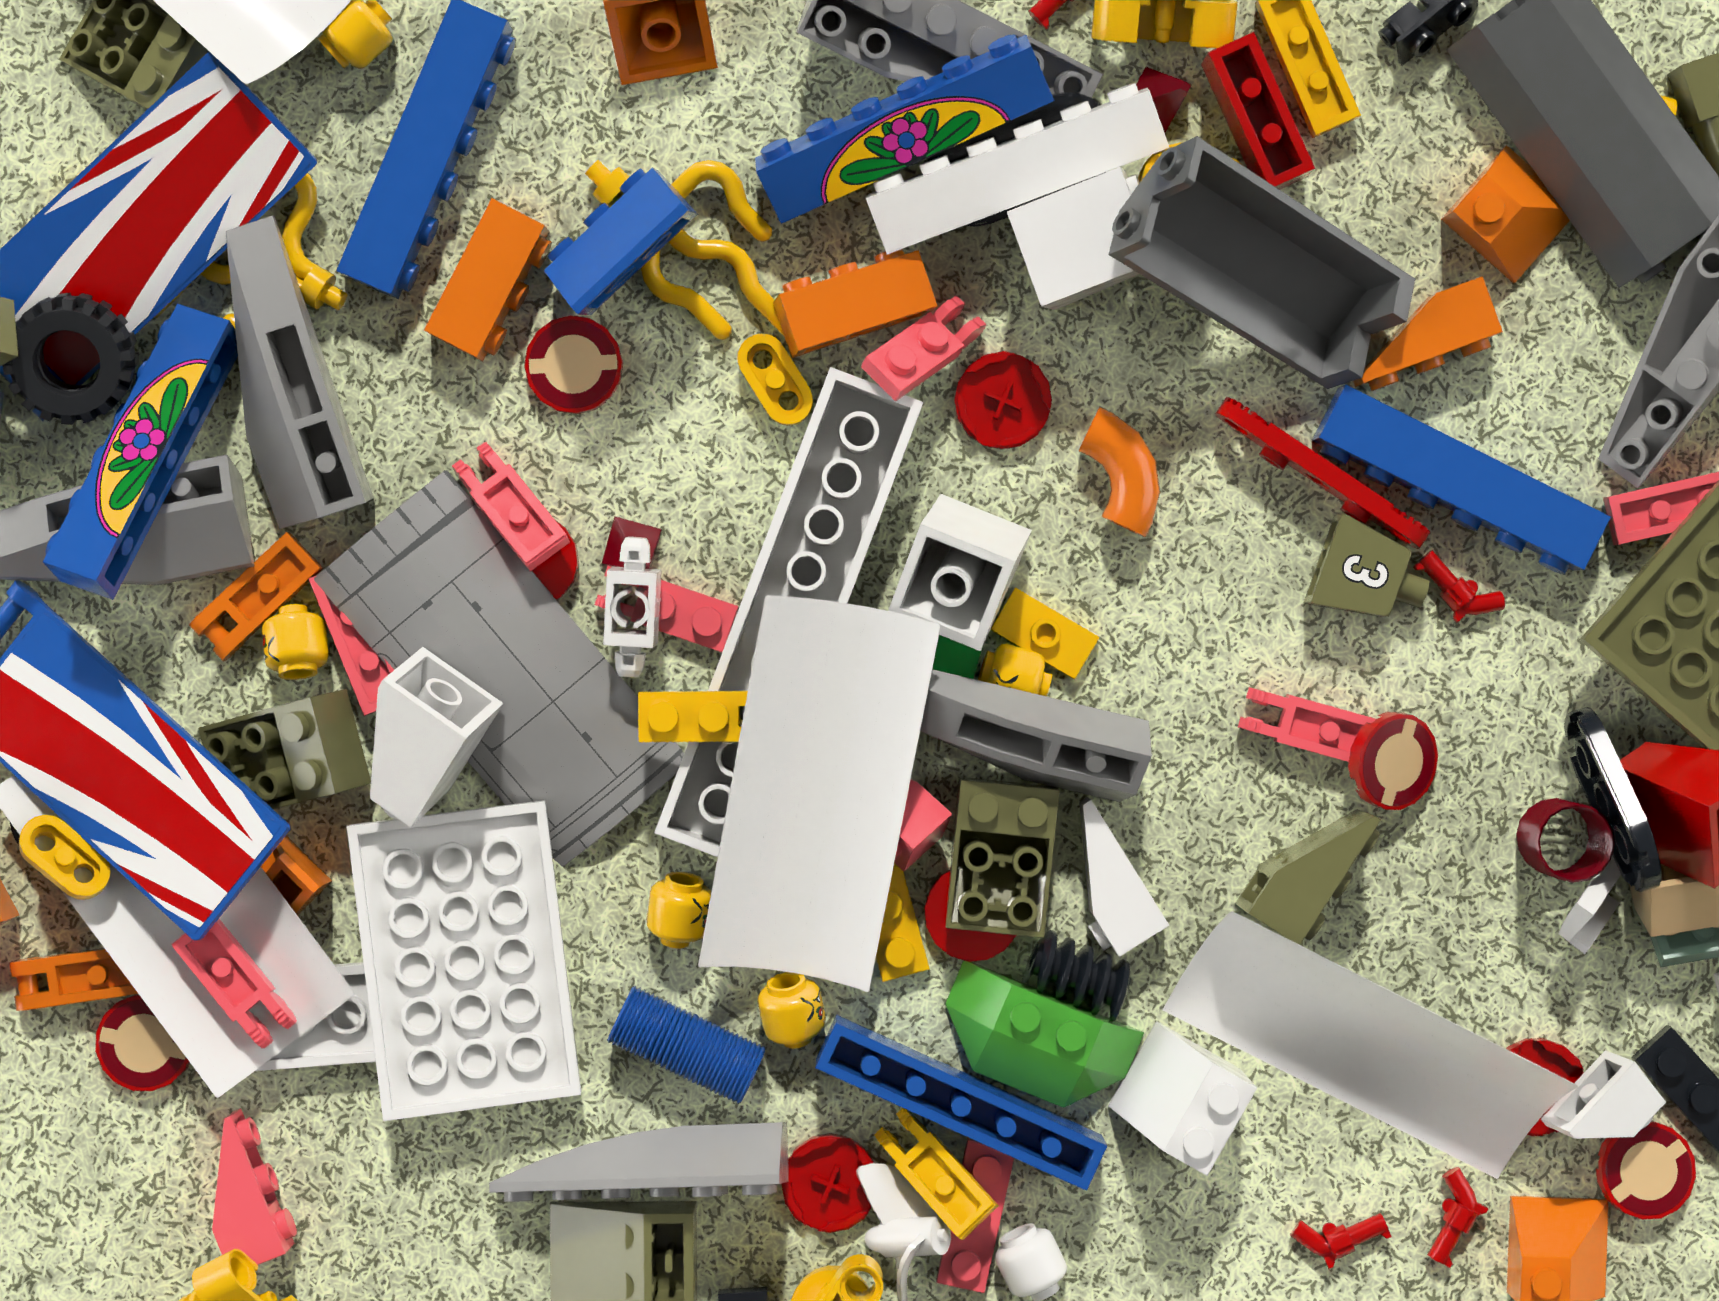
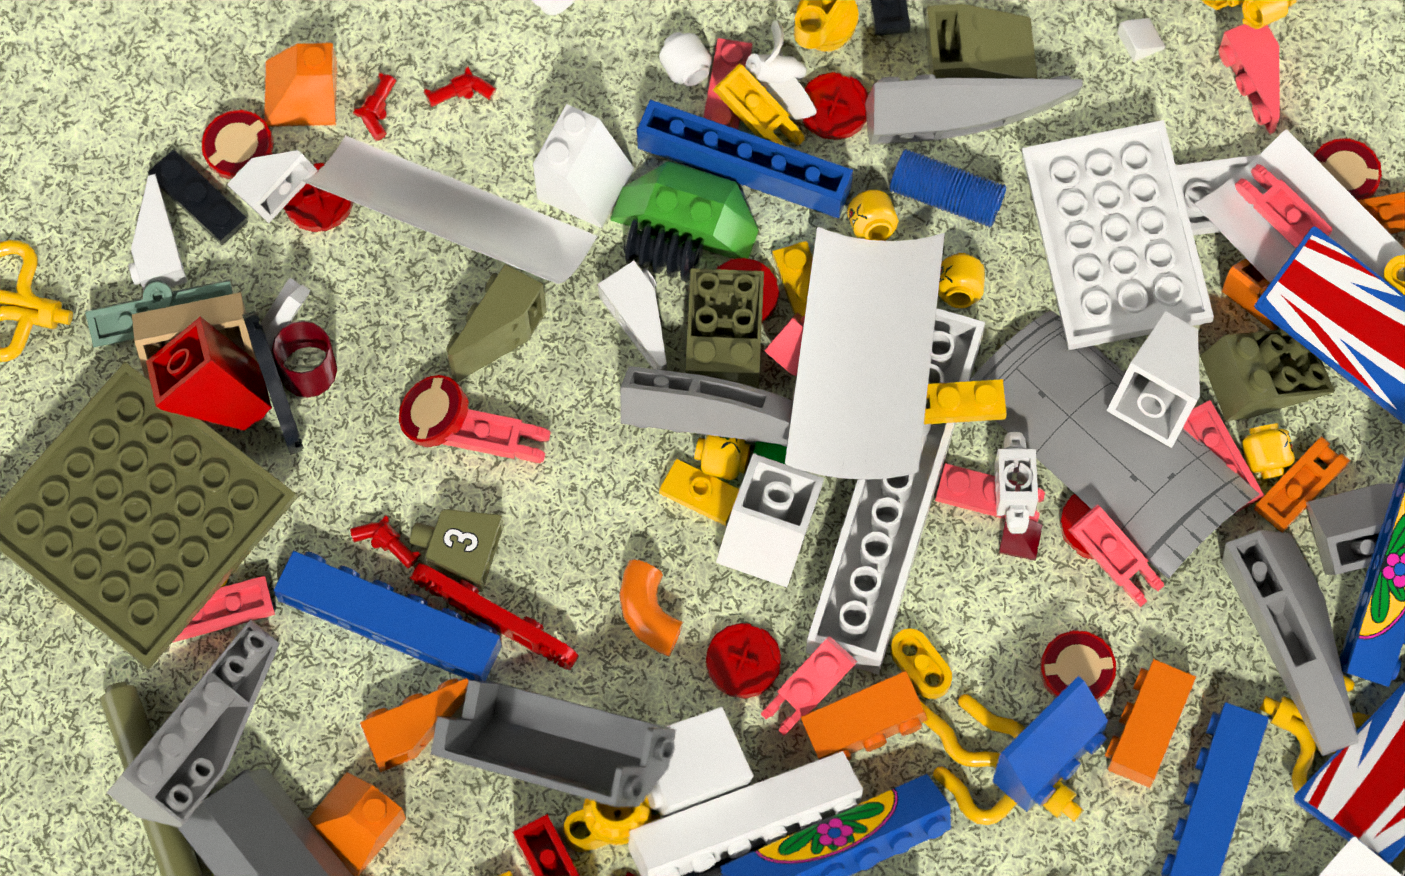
camera: 175 degrees right, 20 degrees down
(401, 1261) = (1140, 38): none -> white slope

